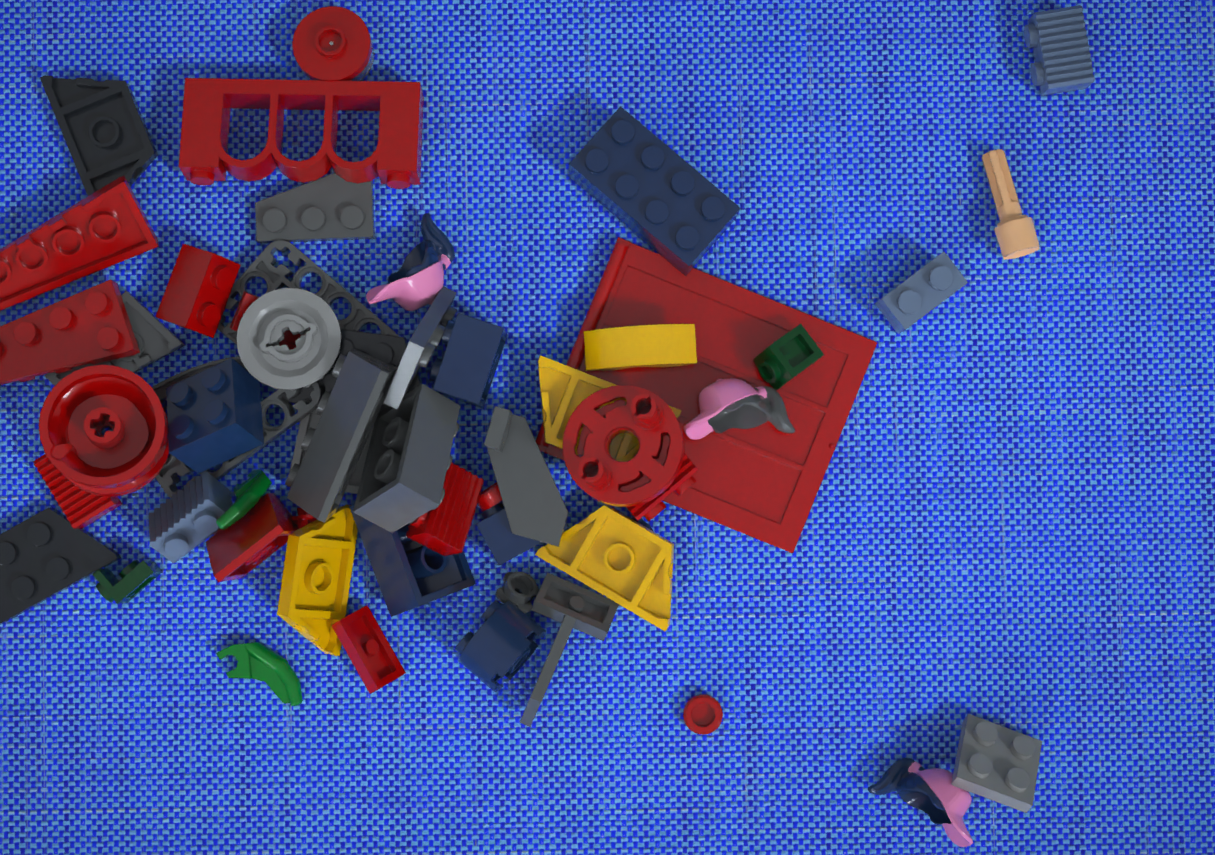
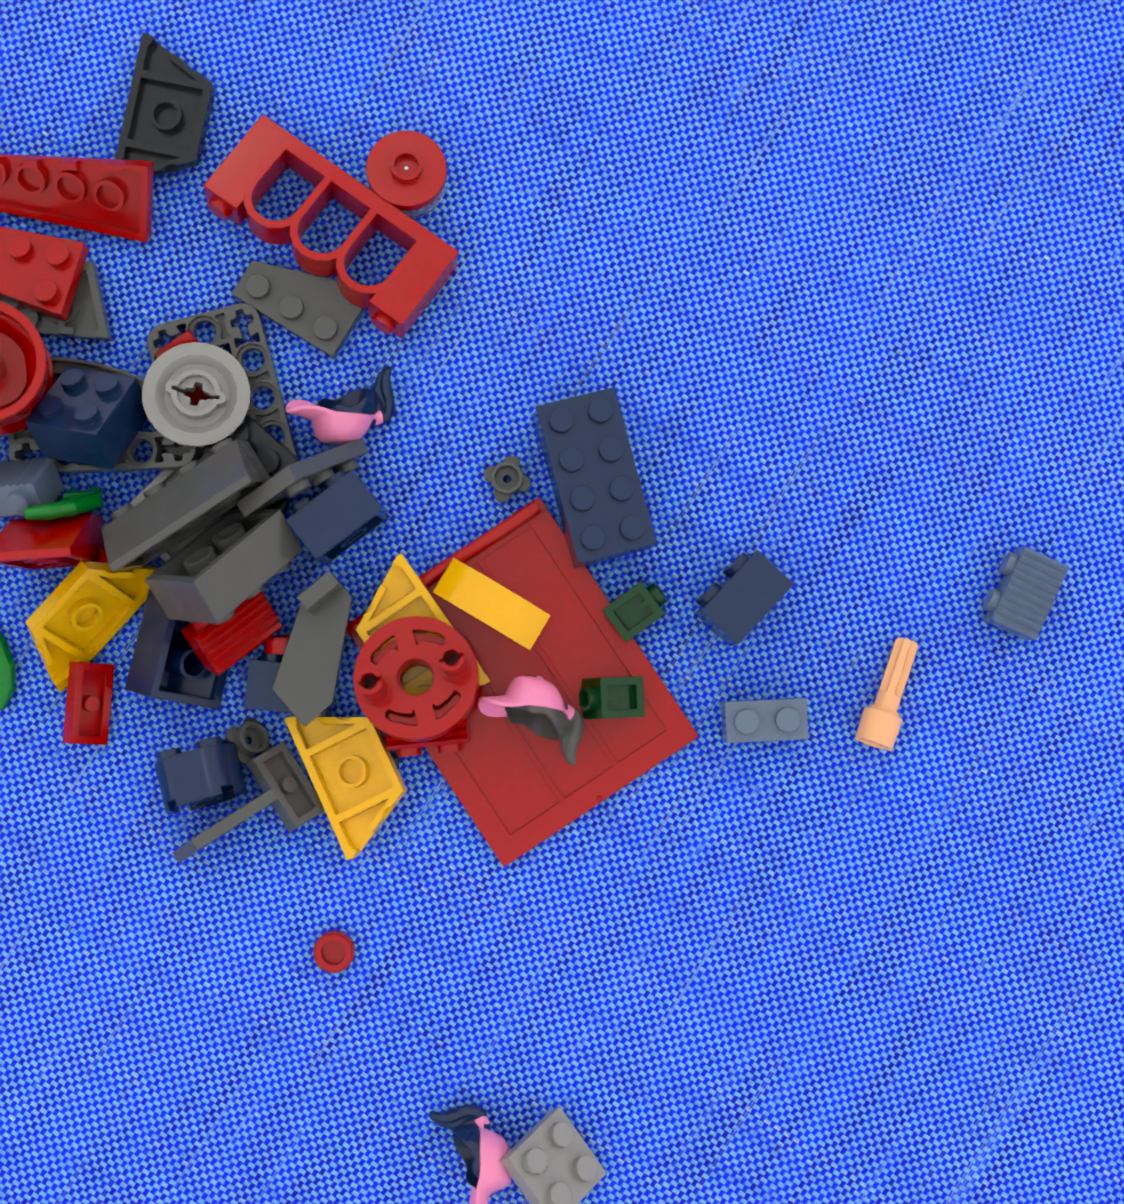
camera: 30 degrees right, 0 degrees up
(198, 290) = (151, 302): red brick -> none
(579, 229) = (496, 474): none -> dark grey plate
(759, 273) = (636, 609): none -> dark green bracket
(839, 205) = (743, 597): none -> dark blue brick

